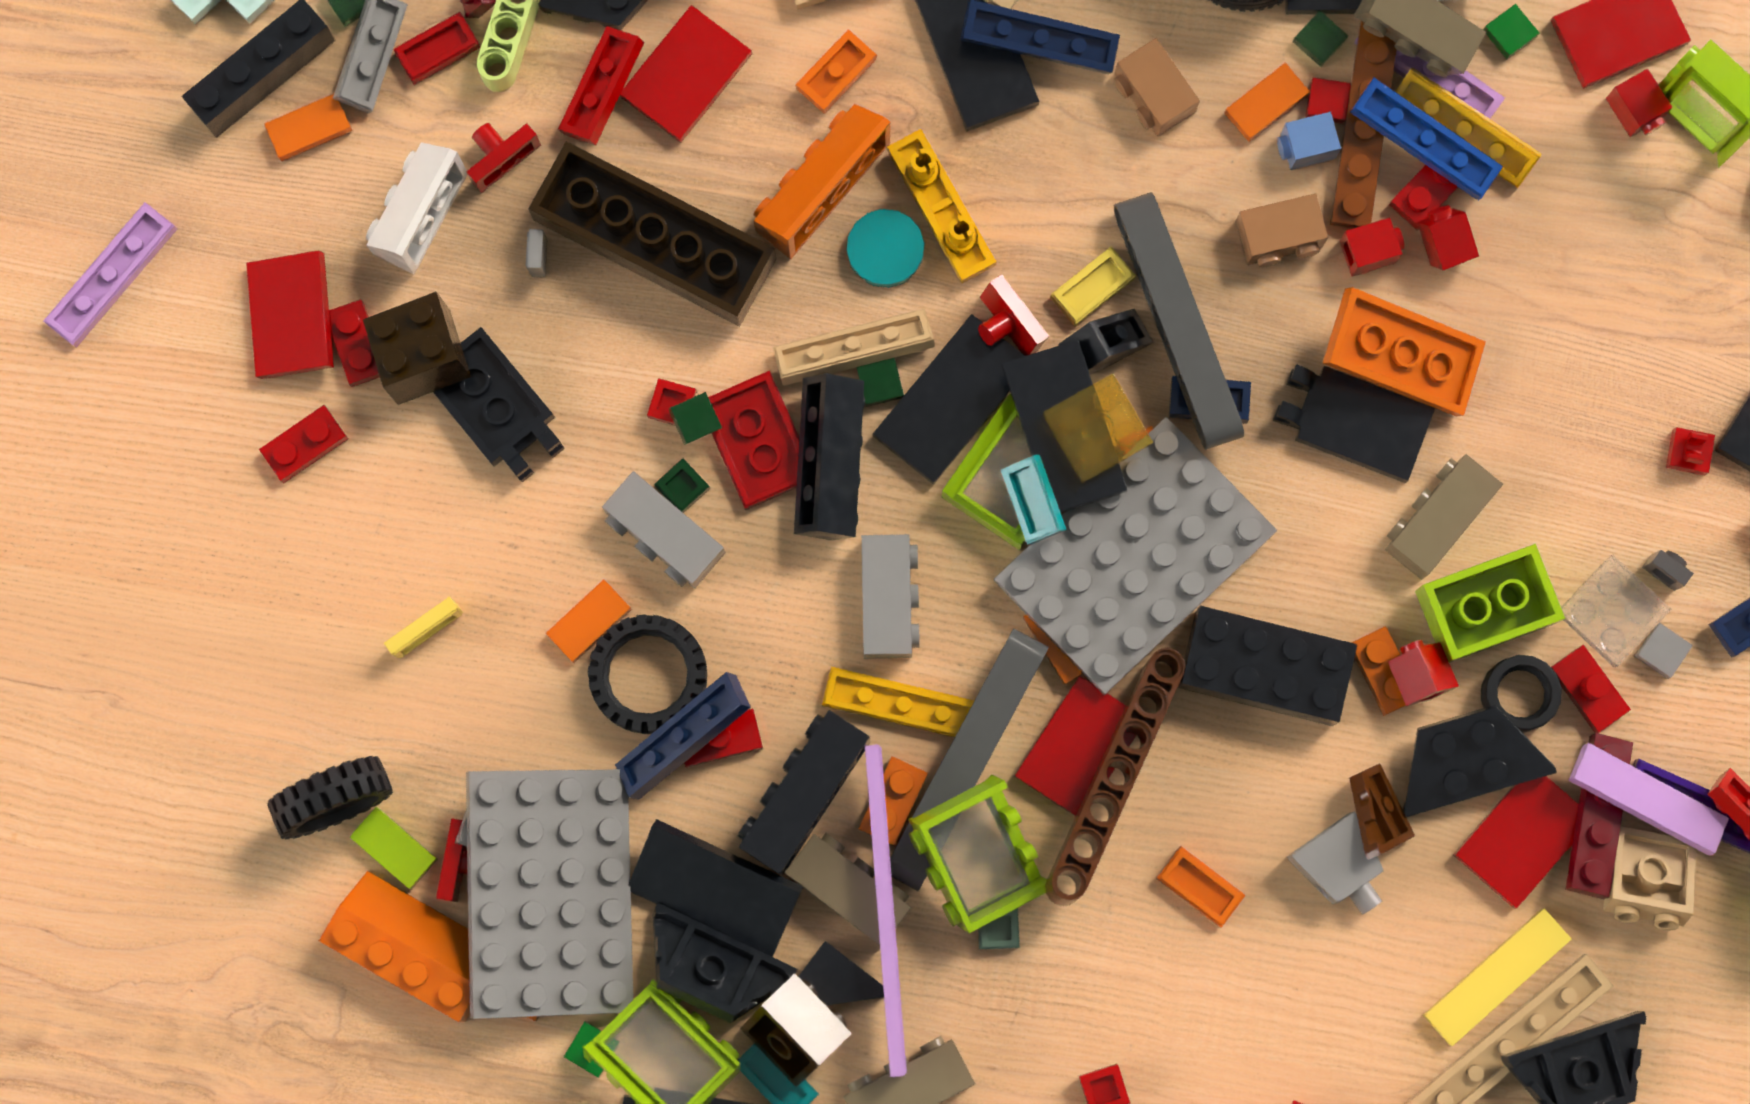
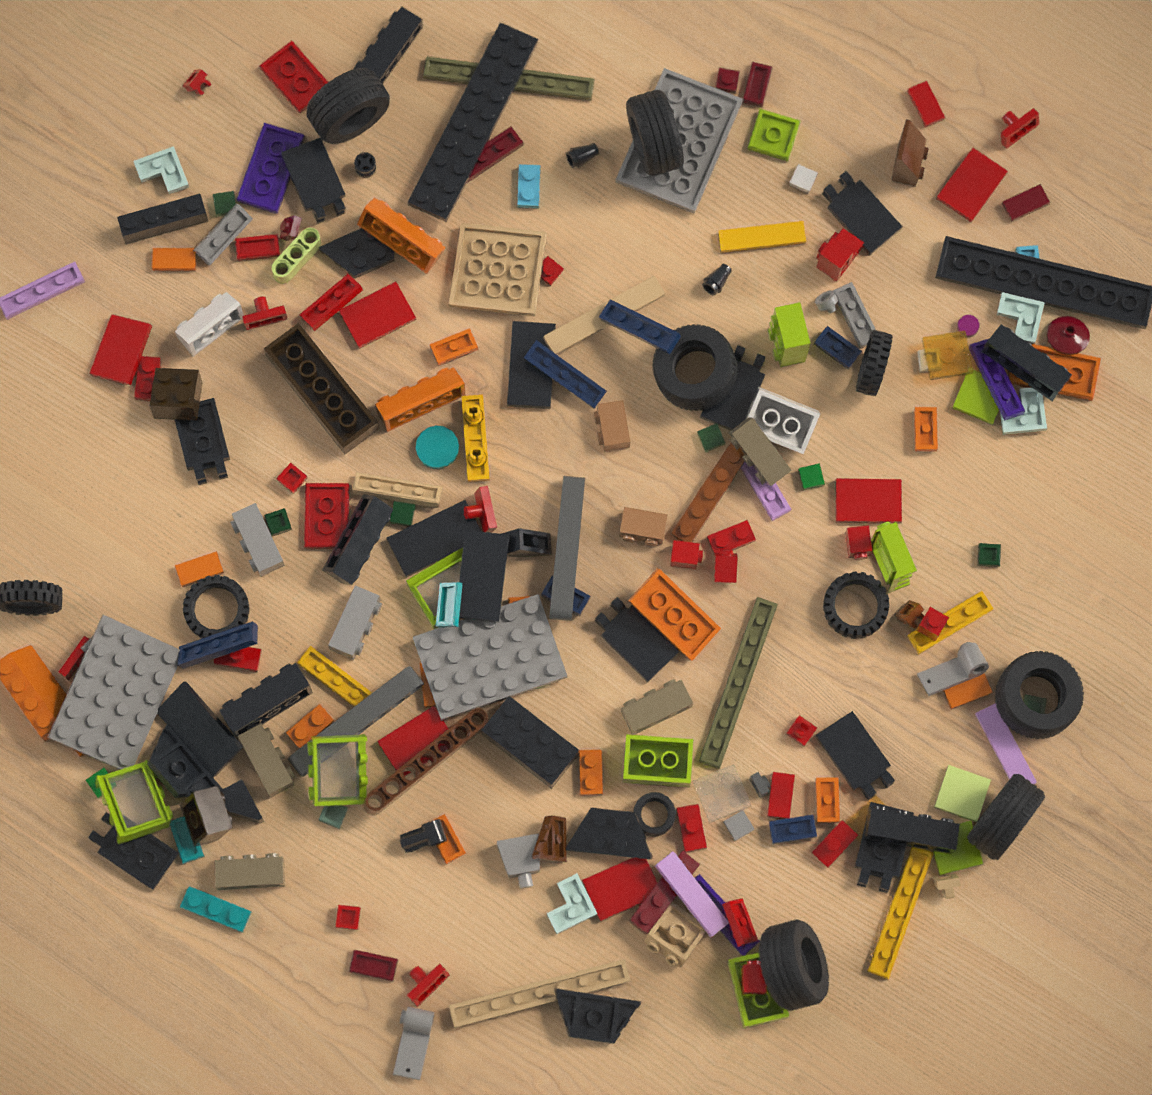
camera: 20 degrees right, 5 degrees down
(303, 444) = (98, 417): red plate -> none
(393, 848) = (49, 639): lime tile -> none
(423, 628) = (115, 535): light yellow tile -> none
(536, 252) = (259, 372): light grey tile -> none
(695, 418) = (299, 490): dark green tile -> none
(885, 910) = (278, 775): lavender tile -> none
(1093, 286) = (534, 512): light yellow tile -> none
(1097, 428) = (497, 583): clear yellow plate -> none
(1175, 894) = (427, 835): none -> black piece
(1267, 102) = (667, 458): orange tile -> none
(1309, 141) = (678, 487): medium blue brick -> none
(1328, 97) = (699, 470): red tile -> none
(1422, 672) = (607, 779): red brick -> none
(1426, 139) = (737, 511): blue tile -> none
(1469, 901) = (577, 906): none -> light aqua plate
(1470, 125) = (763, 515): yellow tile -> none
(1497, 977) = (574, 951): light yellow tile -> none
(1552, 418) = (738, 683): none -> olive tile
(1712, 579) = (781, 795): none -> red tile
(1715, 176) = (857, 579): none -> black tyre

